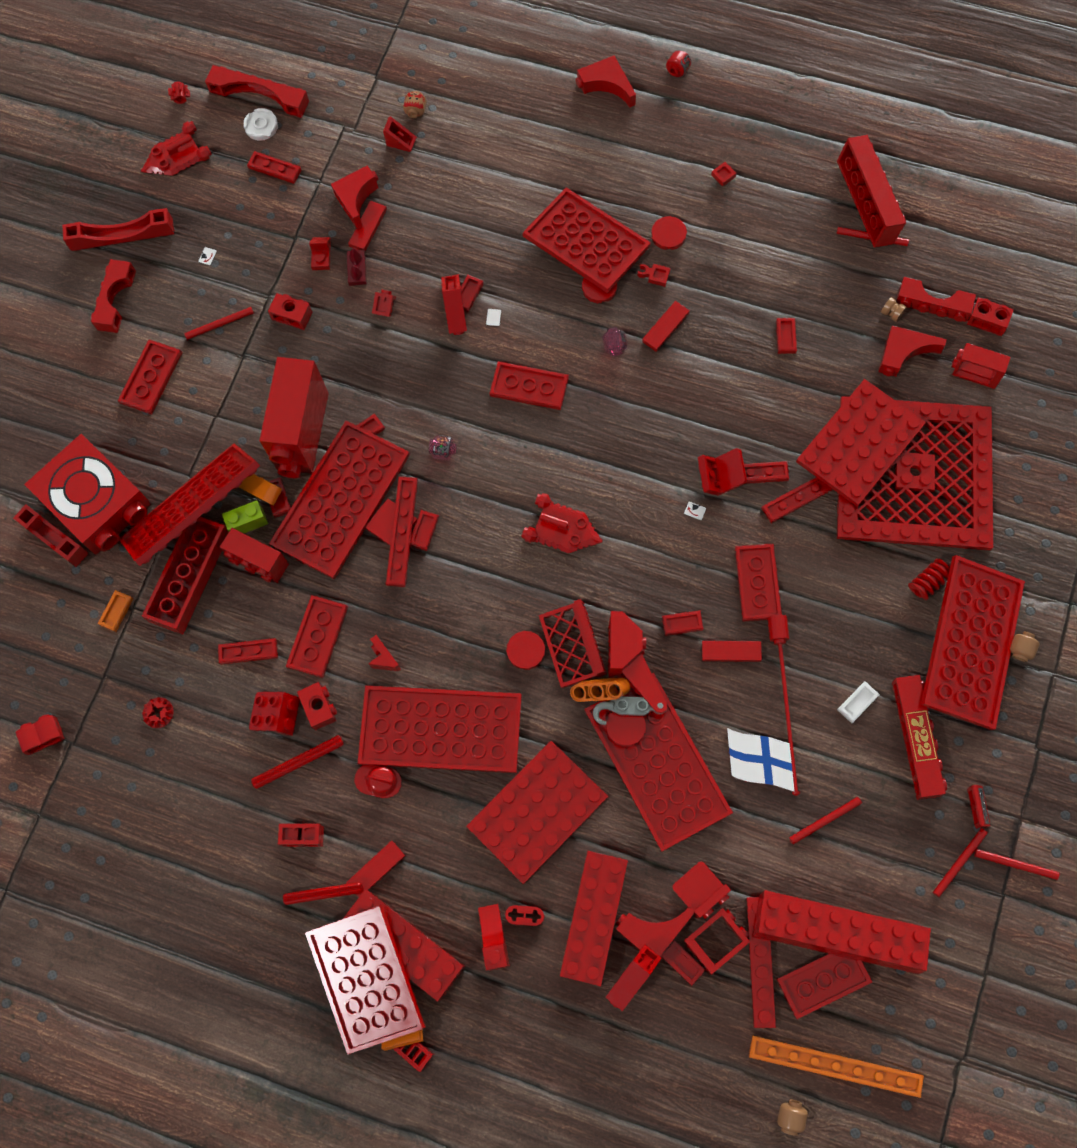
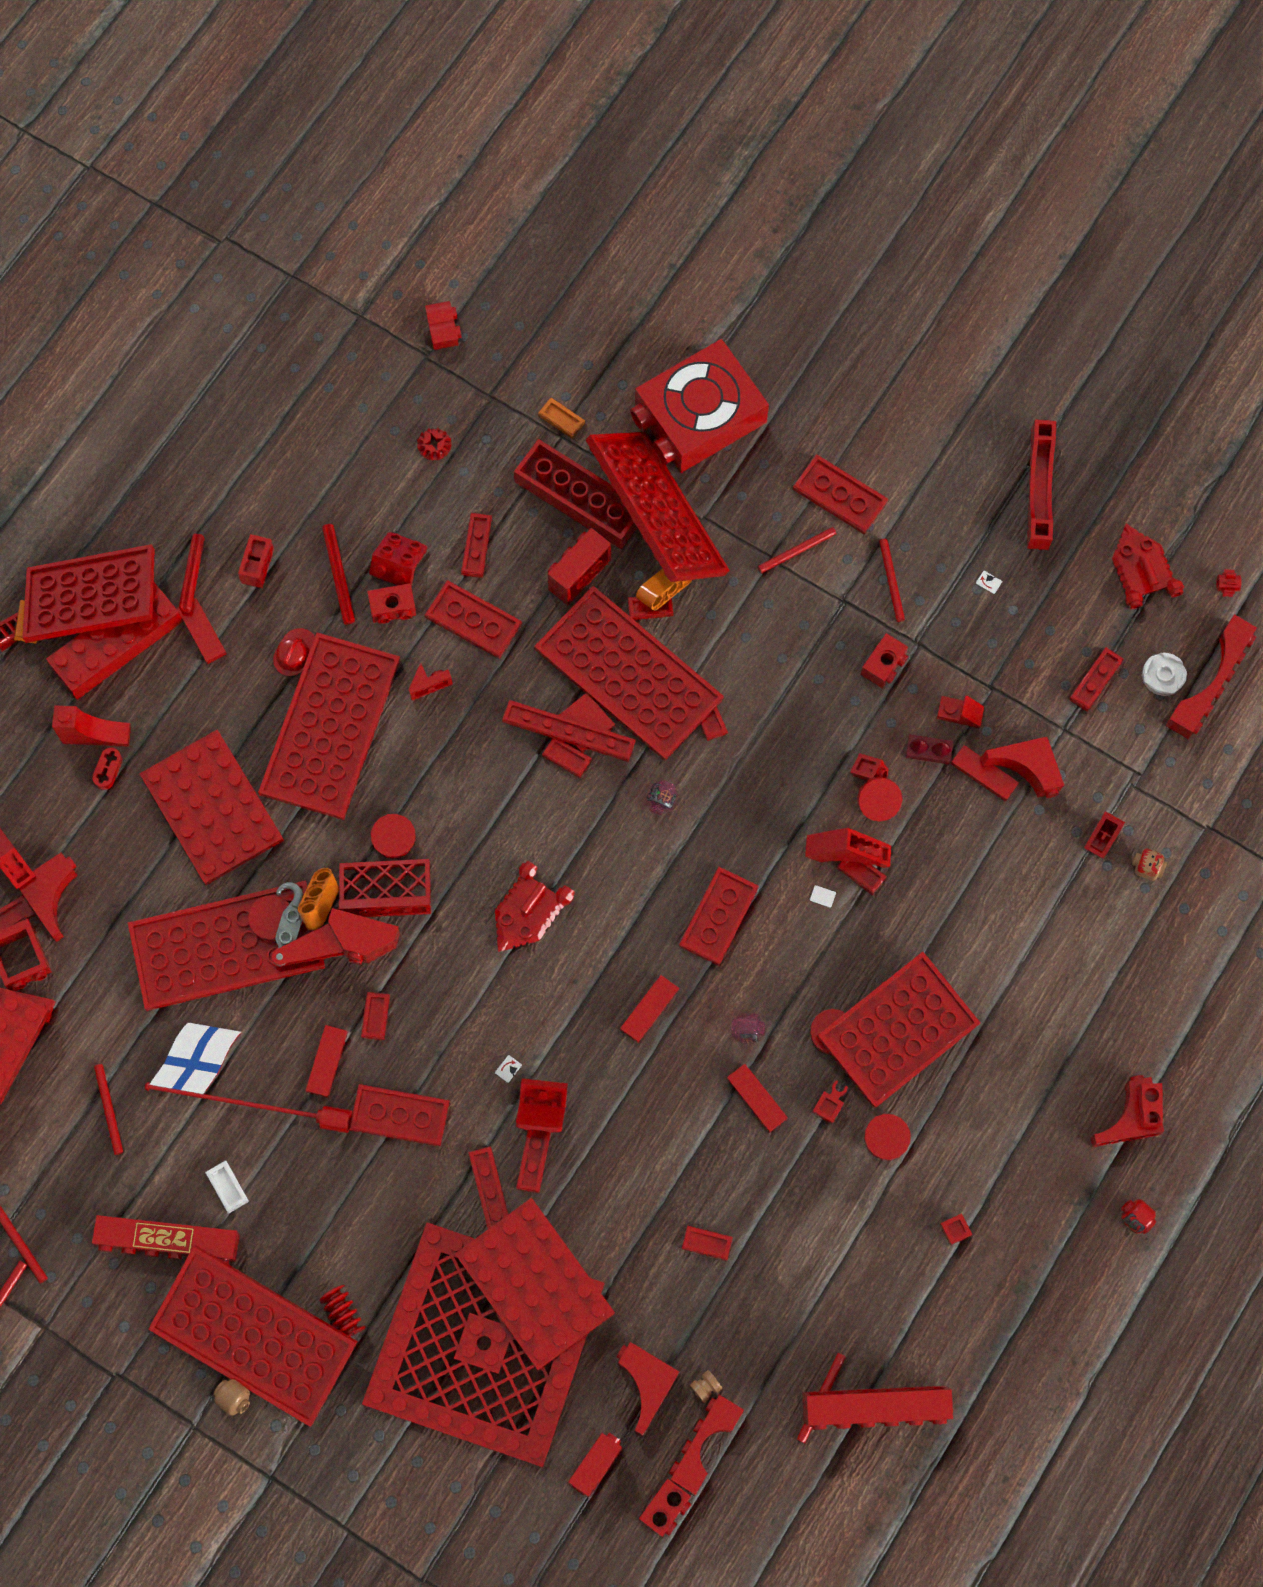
camera: 95 degrees right, 0 degrees up
(50, 535) = (680, 348): red arch -> none
(118, 276) = (932, 456): red arch -> none
(207, 399) = (797, 550): none -> red bar
(245, 517) = (629, 565): lime brick -> none
(294, 416) = (727, 632): red brick -> none
(407, 289) = (879, 799): none -> red tile
(594, 918) = (81, 835): red brick -> none
(598, 62) = (1150, 1104): none -> red leg
(618, 417) = (649, 1009): none -> red tile
(701, 890) = (74, 954): red bracket -> none
(978, 806) = (70, 1283): red slope -> none

